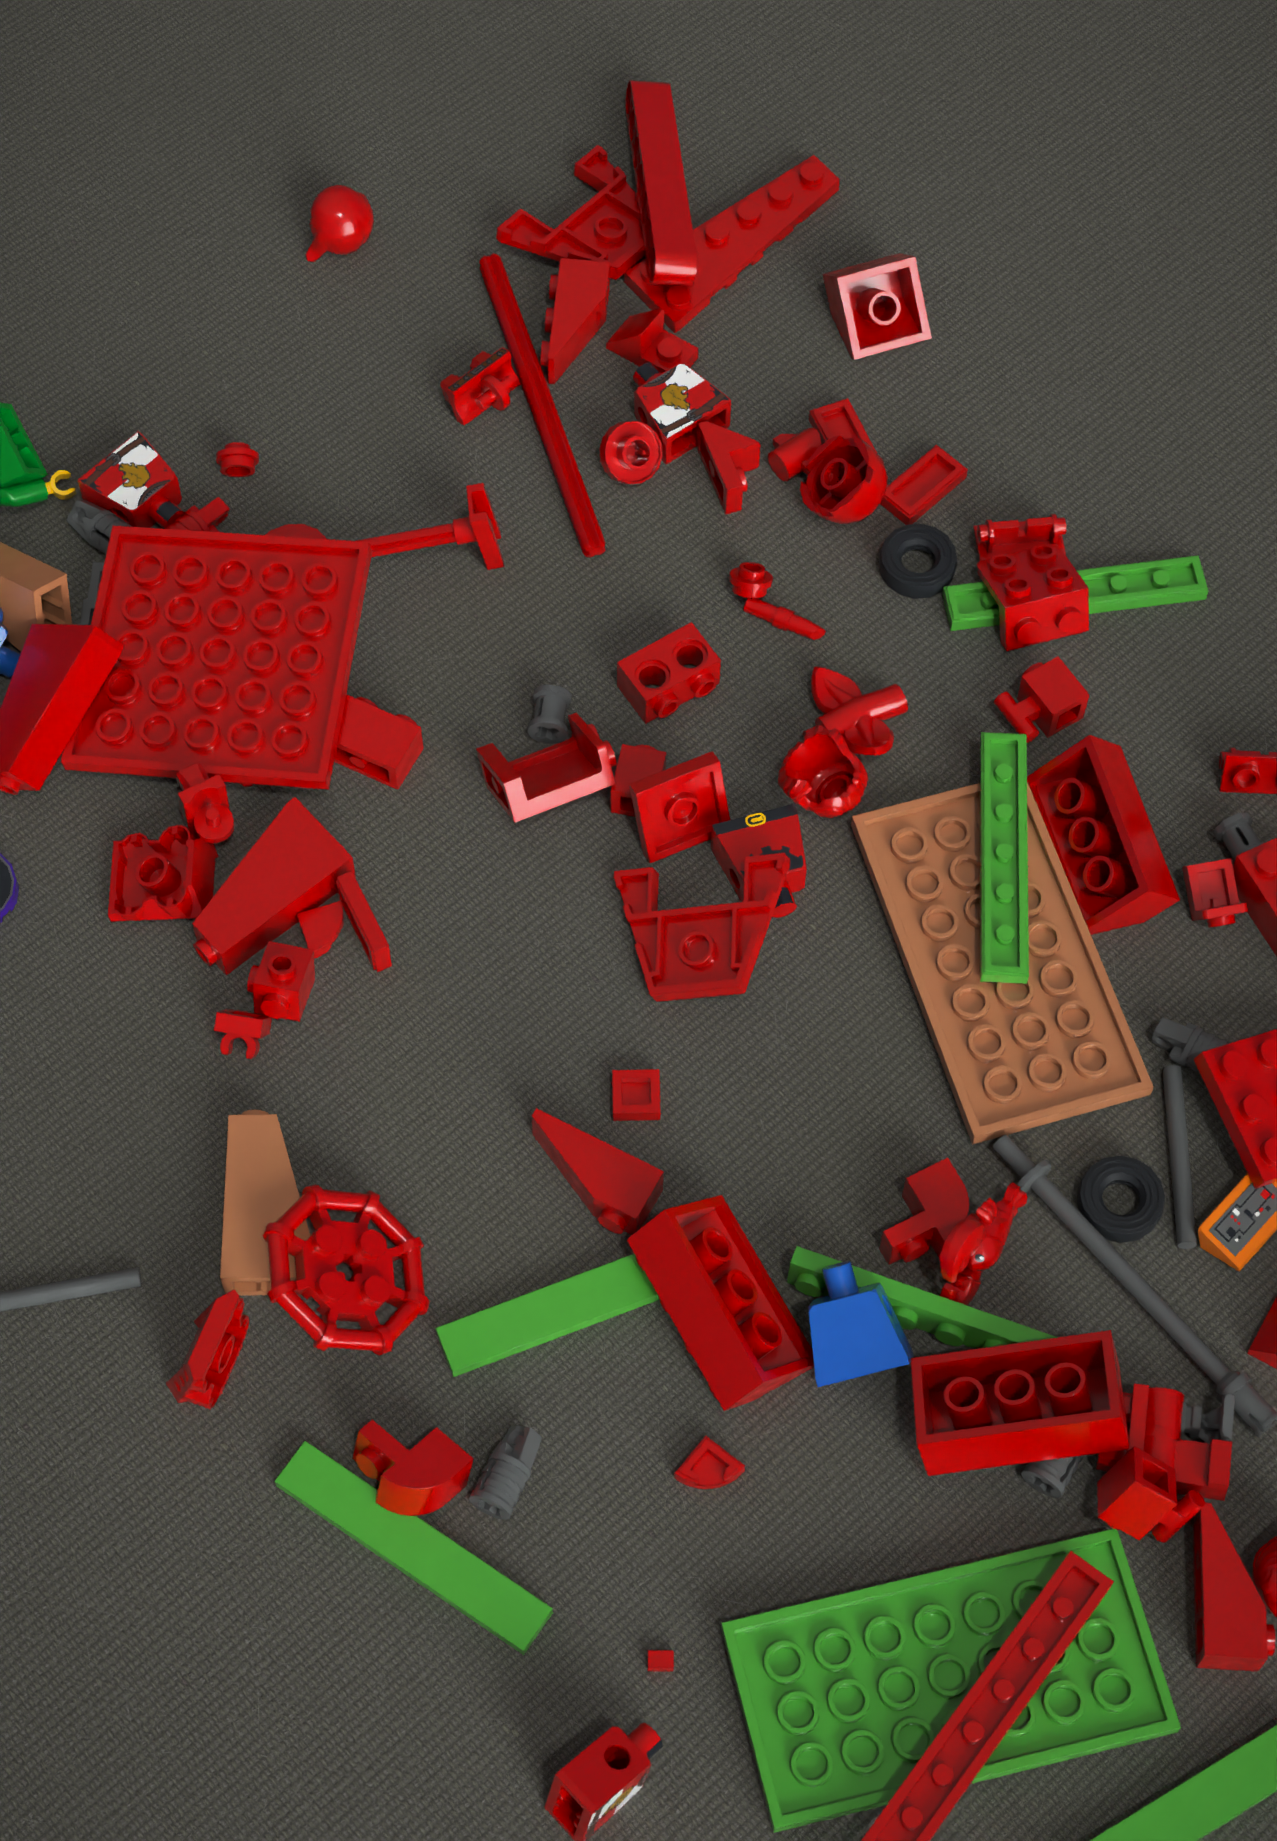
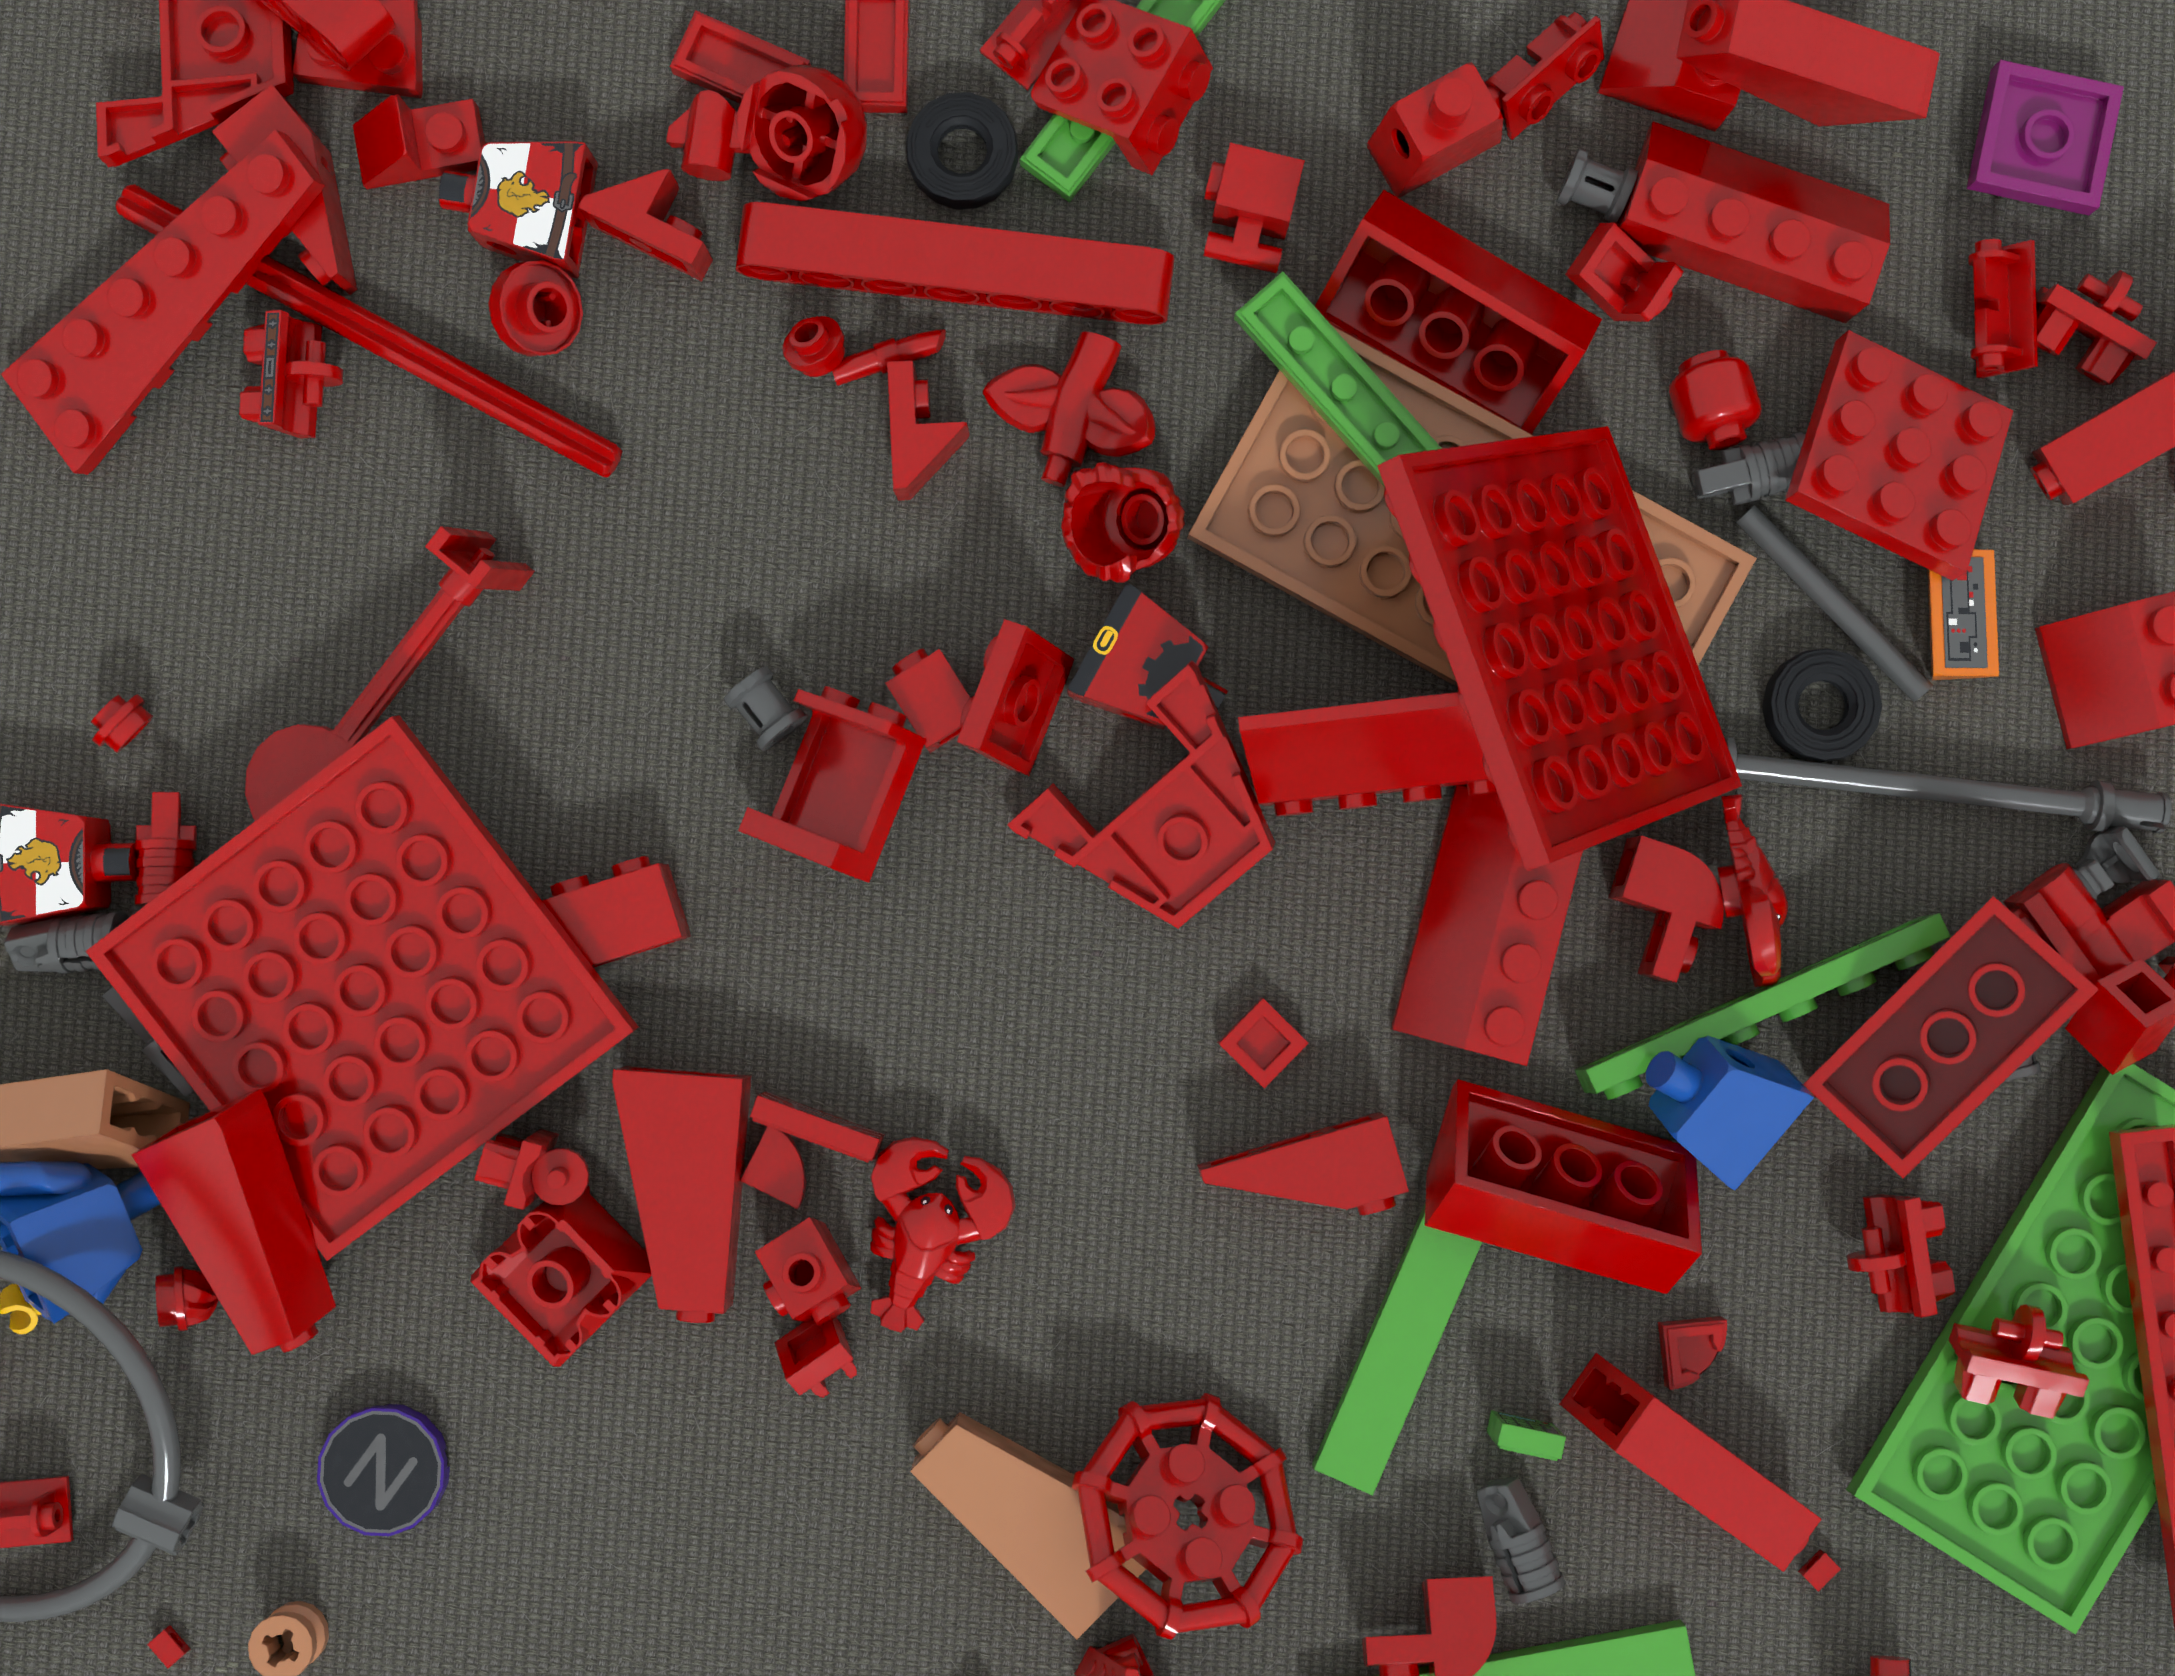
camera: 45 degrees left, 25 degrees up
(366, 1021) = (930, 1225): none -> red animal
(420, 308) = (132, 328): none -> red wing
(569, 1416) = (1526, 1435): none -> bright green tile
(647, 1519) = (1689, 1462): none -> red slope
(663, 666) = (826, 541): red brick -> none
(757, 661) = (915, 447): none -> red slope
(823, 1144) = (1484, 937): none -> red slope
(849, 977) = (1363, 752): none -> red slope
(862, 604) = (955, 263): none -> red beam
(872, 1605) = (2017, 1353): none -> red hips
(895, 1505) = (1899, 1254): none -> red hips
(992, 981) = (1559, 637): none -> red plate
(1179, 741) = (1443, 128): none -> red torso
(1207, 993) = (1714, 399): none -> red head

